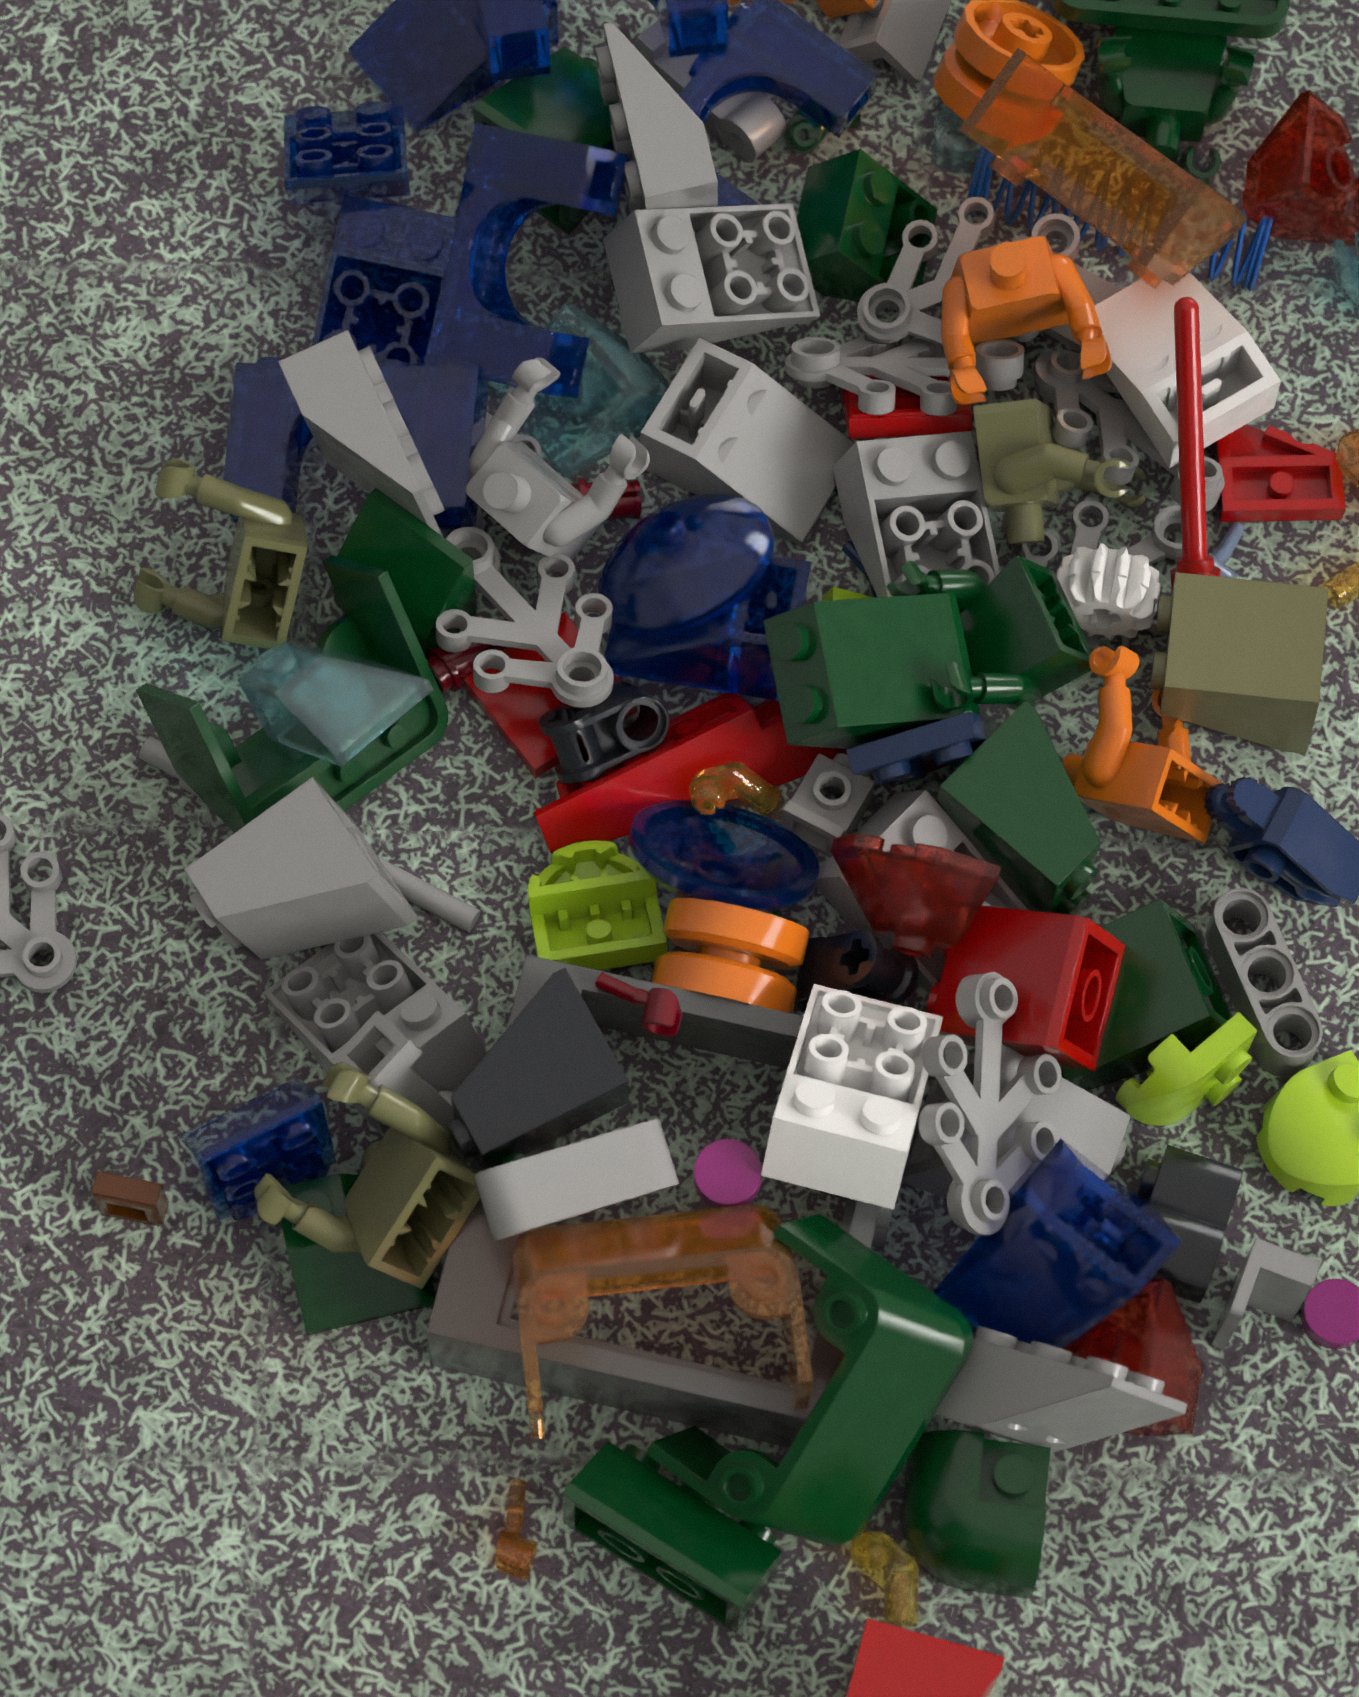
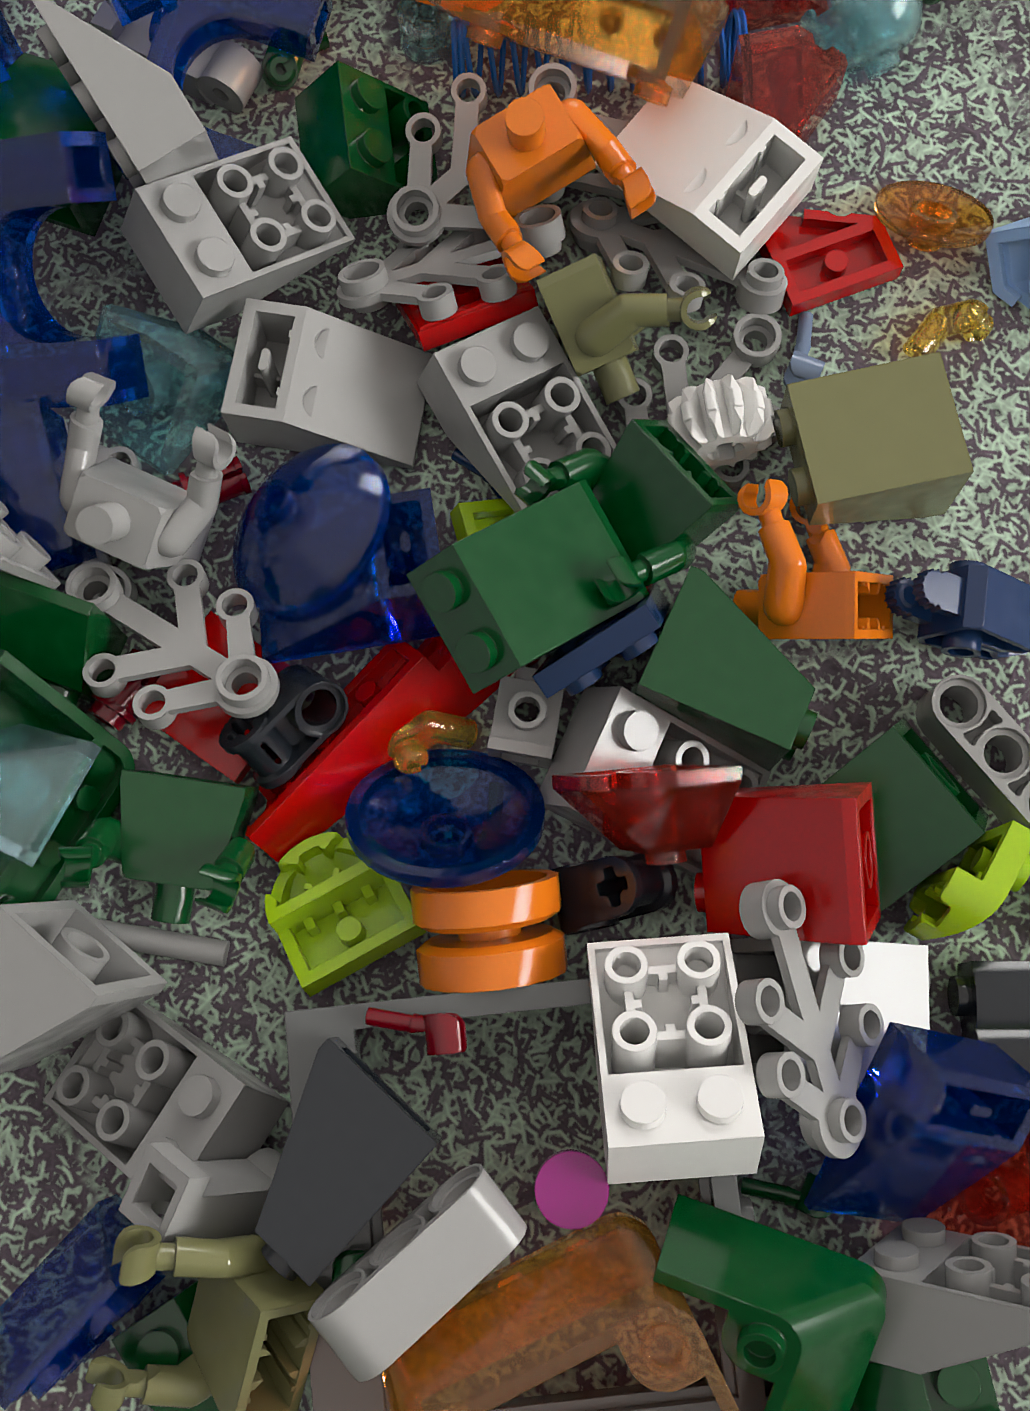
camera: 15 degrees left, 10 degrees up
(466, 795) = (173, 834): none -> dark green torso
(1190, 443) = (789, 363): red piece -> none
(1289, 305) = (786, 77): none -> clear red slope

